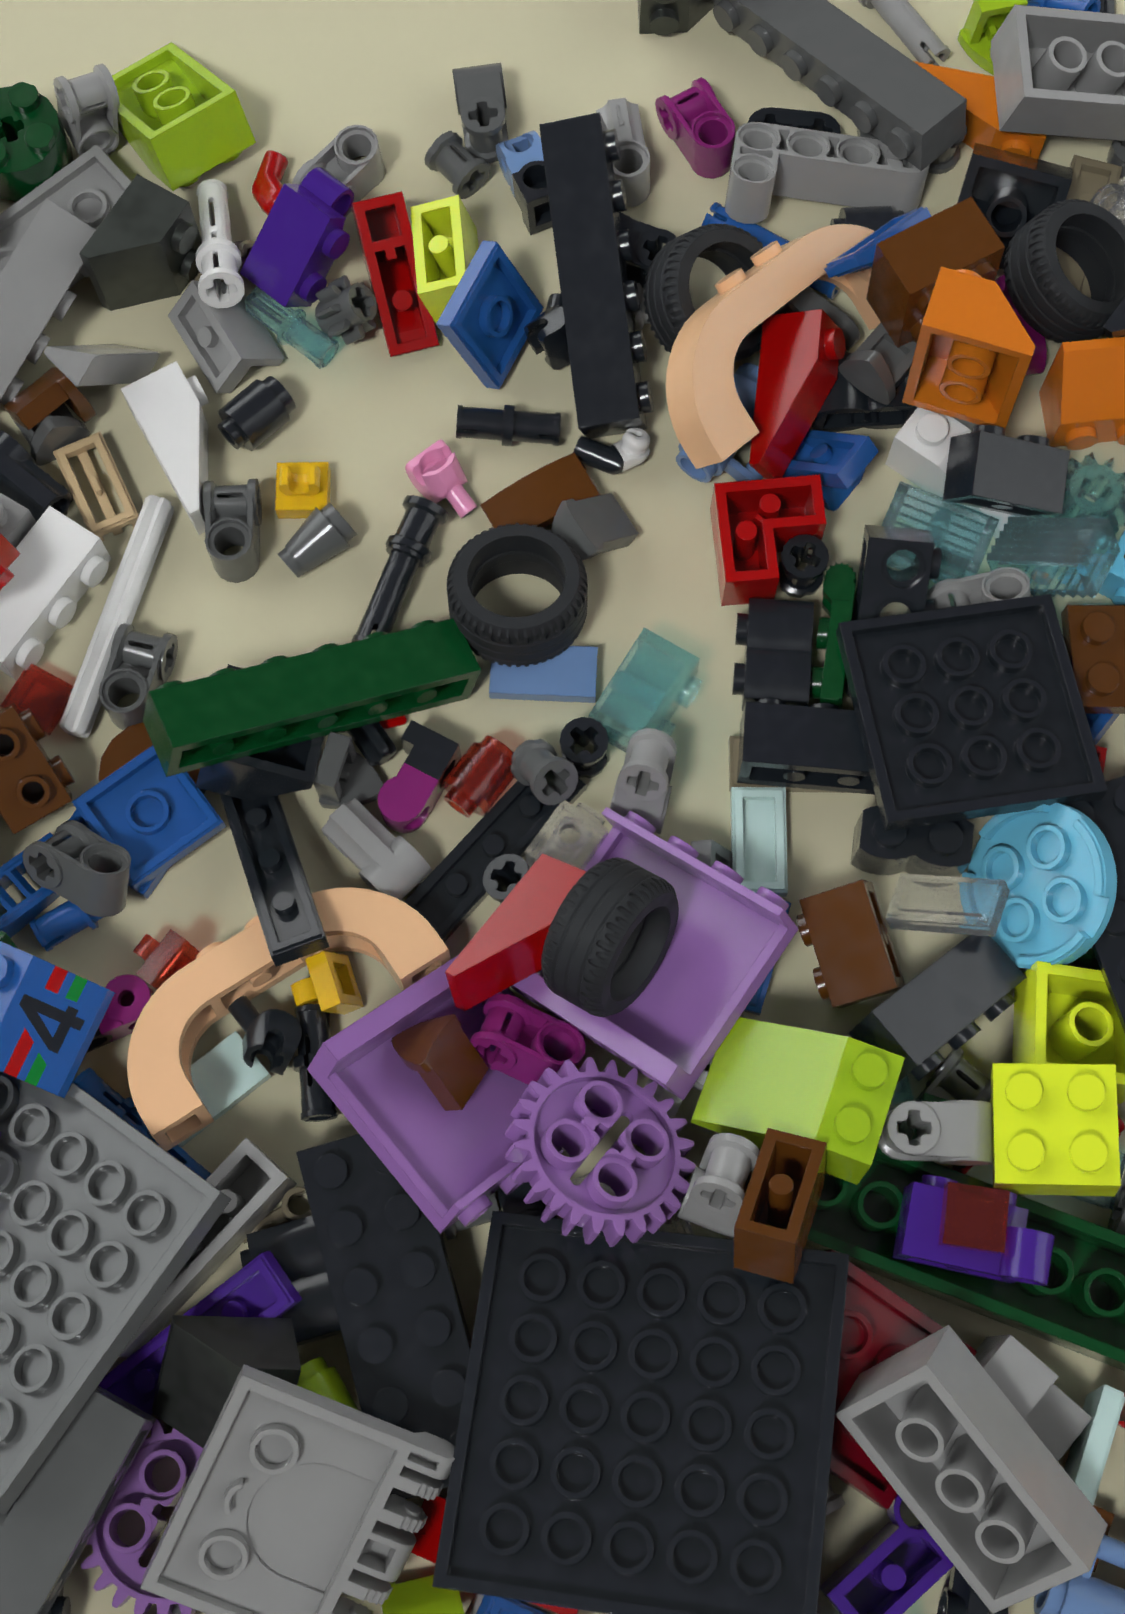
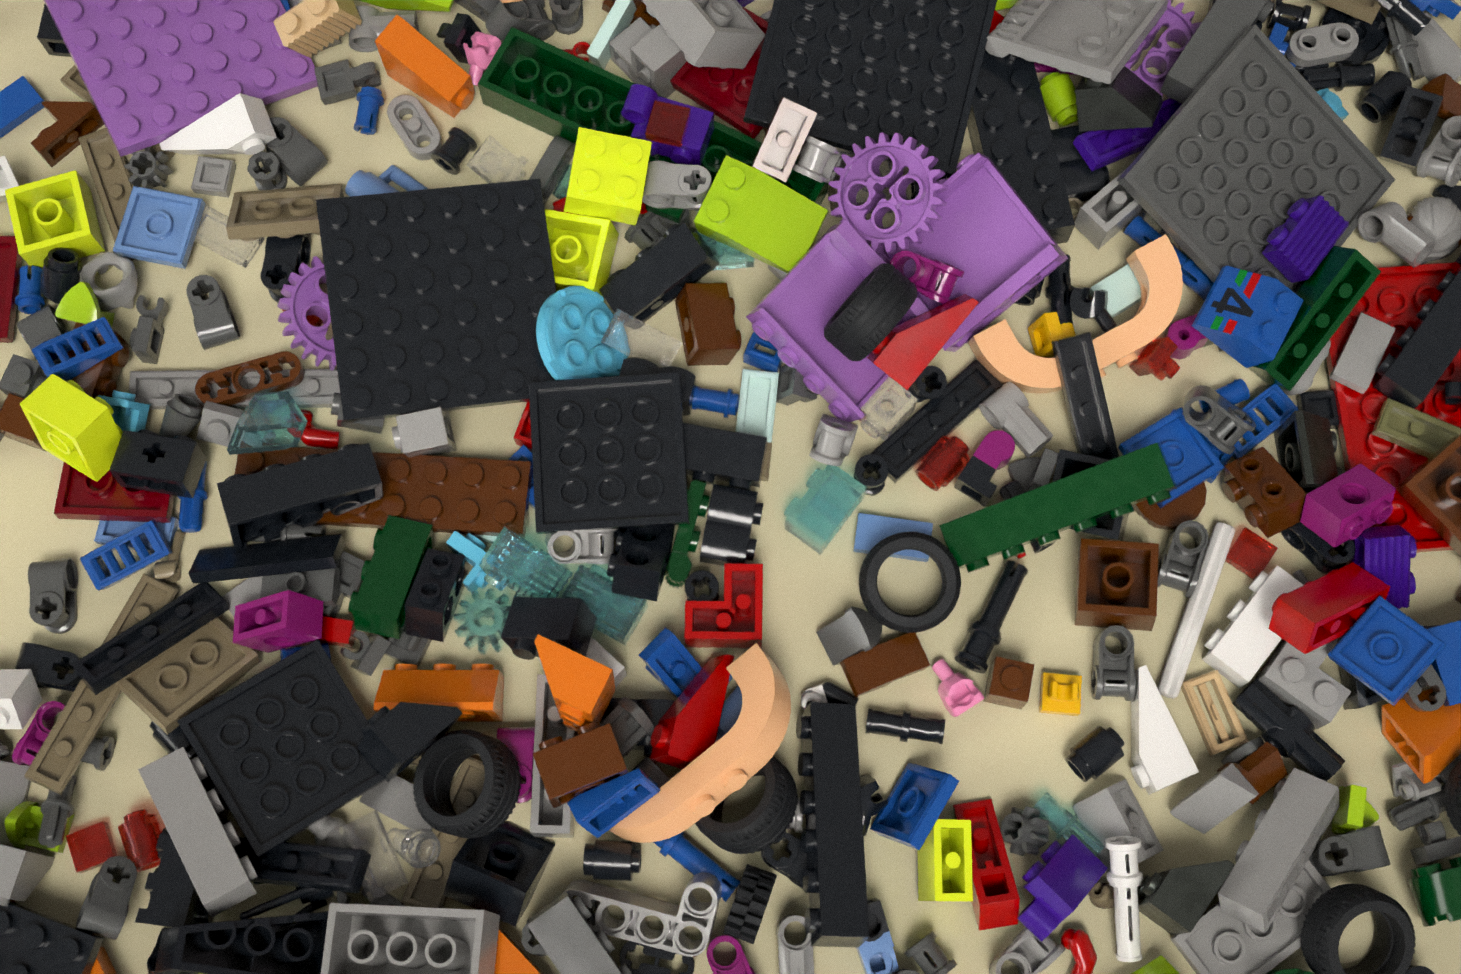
camera: 175 degrees left, 0 degrees up
(225, 614) = (1117, 584): none -> reddish brown brick
(317, 540) = (1050, 648): dark grey cone -> none
(373, 484) = (1009, 683): none -> reddish brown brick
(443, 1059) = (983, 261): reddish brown tile -> none
(549, 776) = (901, 449): dark grey bush -> none
(687, 186) = (750, 903): none -> black tyre
(821, 839) = (716, 401): none -> blue pin

